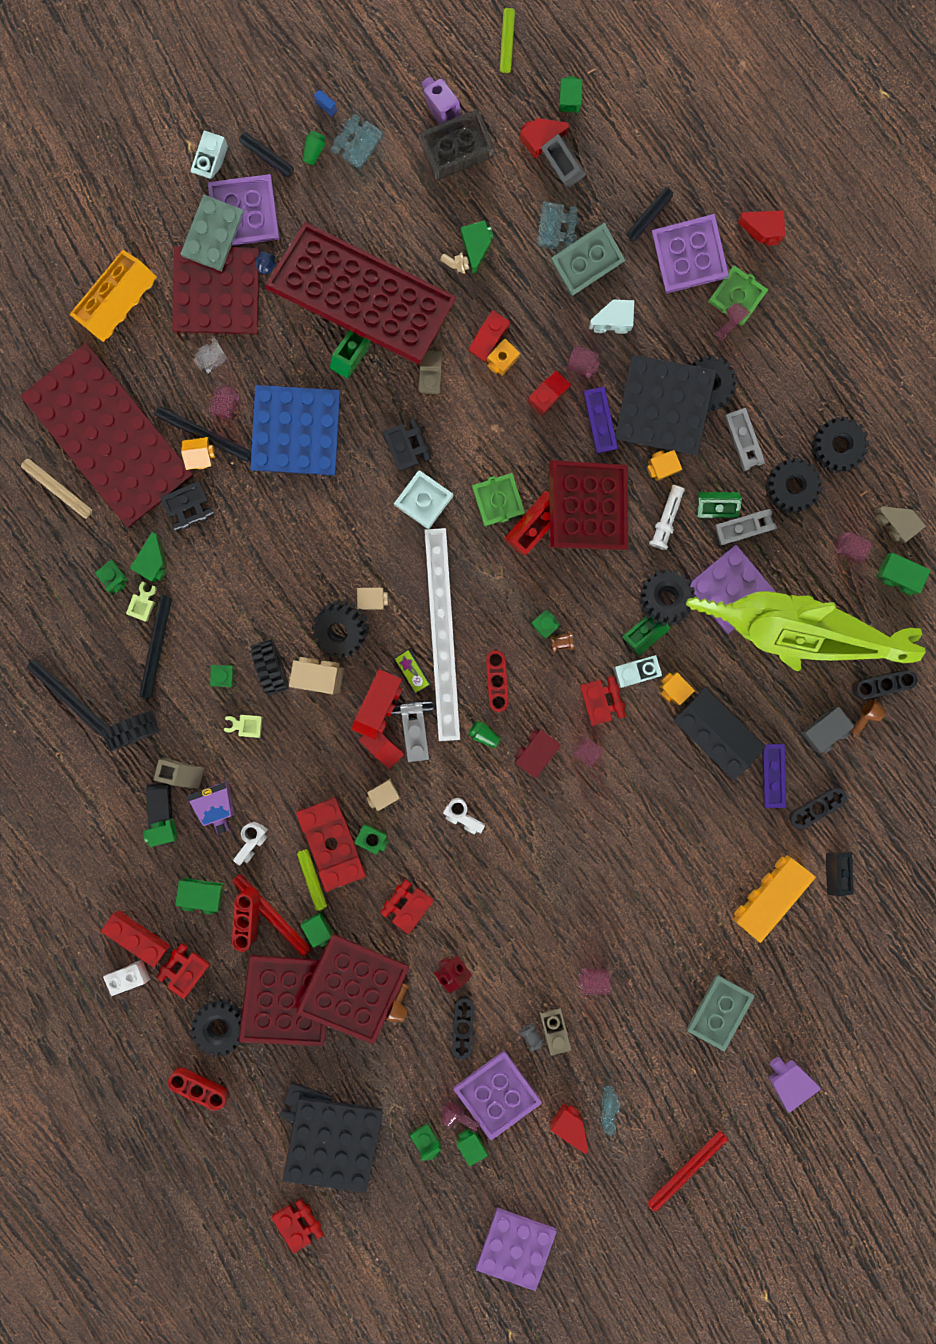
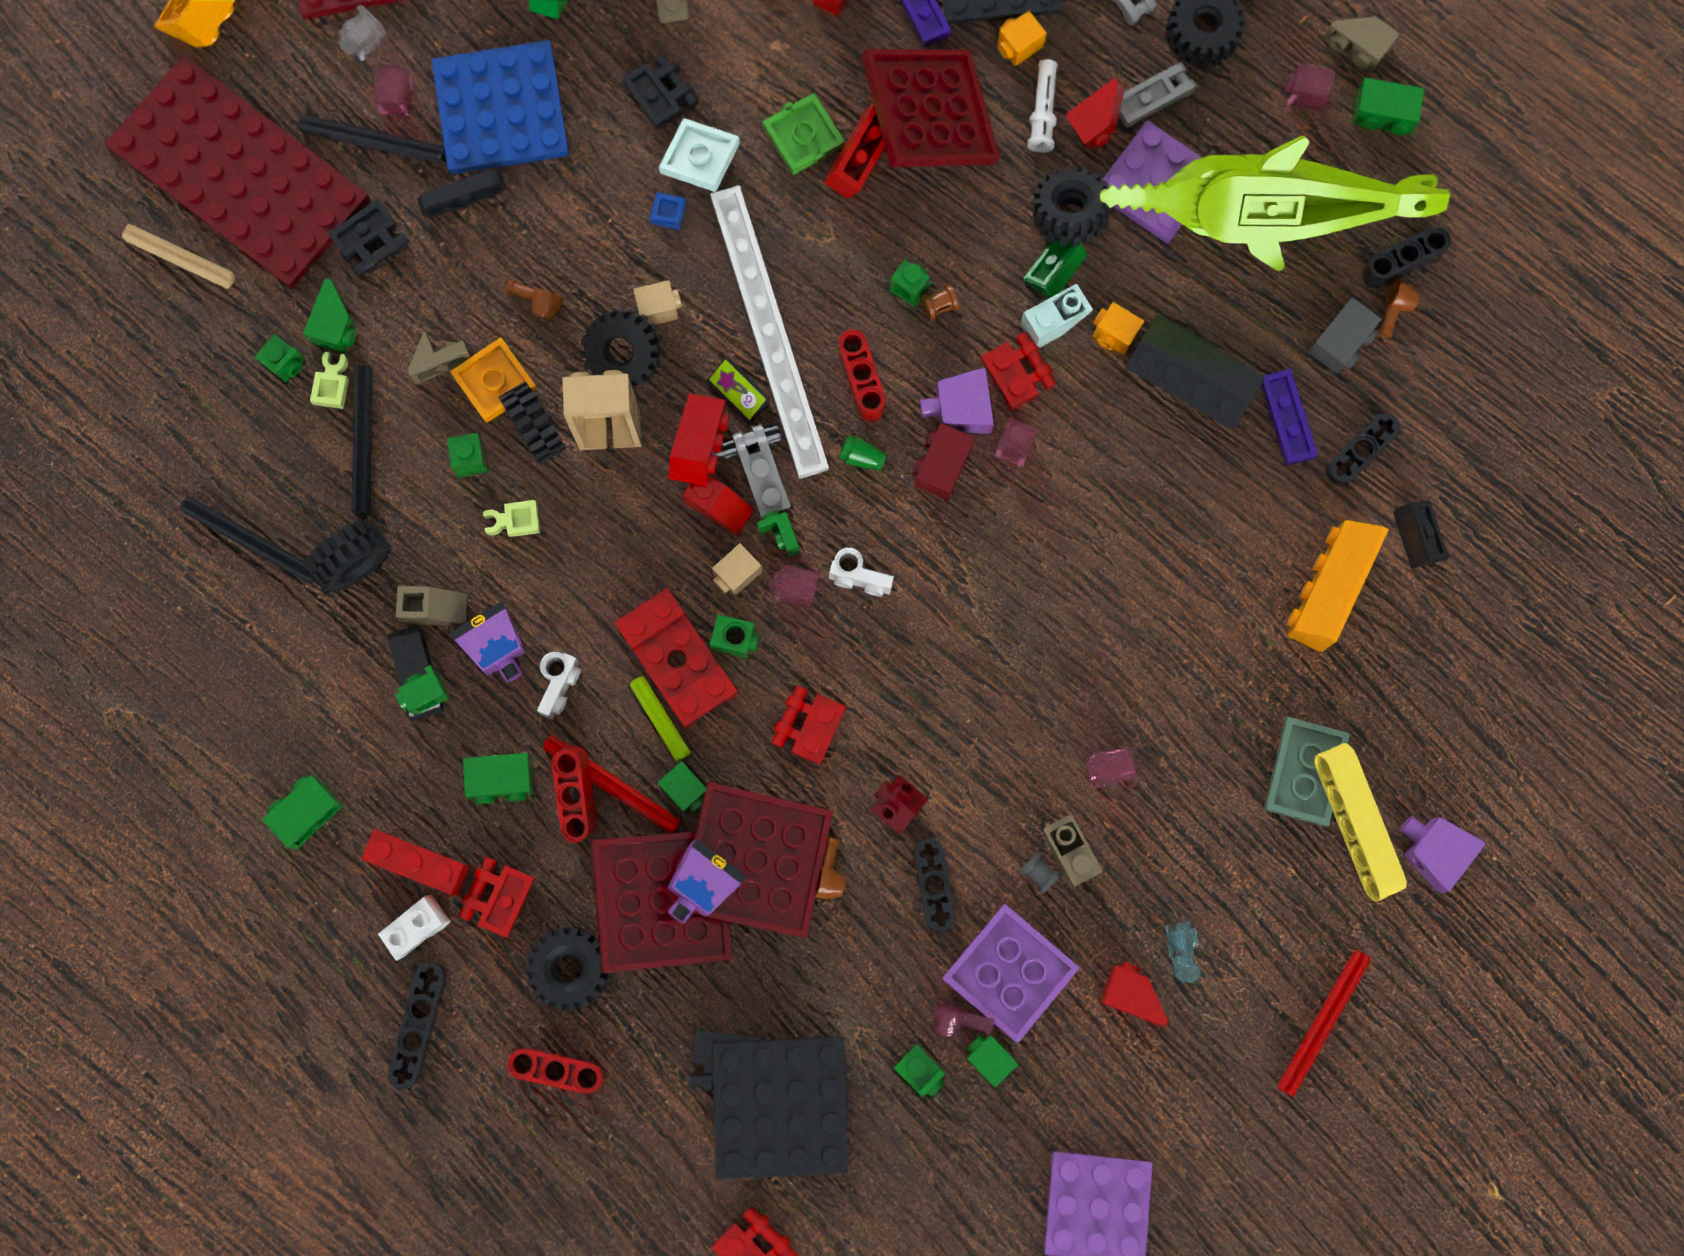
camera: 15 degrees left, 10 degrees down
(70, 888) = (302, 811): none -> green brick
(117, 1039) = (411, 1023): none -> black beam
(197, 453) = (369, 162): brick -> none
(210, 603) = (429, 364): none -> dark tan slope
(250, 625) = (489, 376): none -> light orange plate
(256, 489) = (461, 193): none -> black beam
(296, 579) = (543, 302): none -> dark orange bar
(313, 1001) = (702, 882): none -> torso
(393, 532) = (668, 210): none -> blue tile
(419, 814) = (795, 586): none -> clear pink brick
(420, 779) = (784, 536): none -> green bracket
(558, 716) = (962, 403): none -> medium lavender torso
(702, 536) = (1098, 115): none -> red slope
(718, 504) = (1098, 74): green slope -> none
(744, 1055) = (1360, 822): none -> light yellow beam

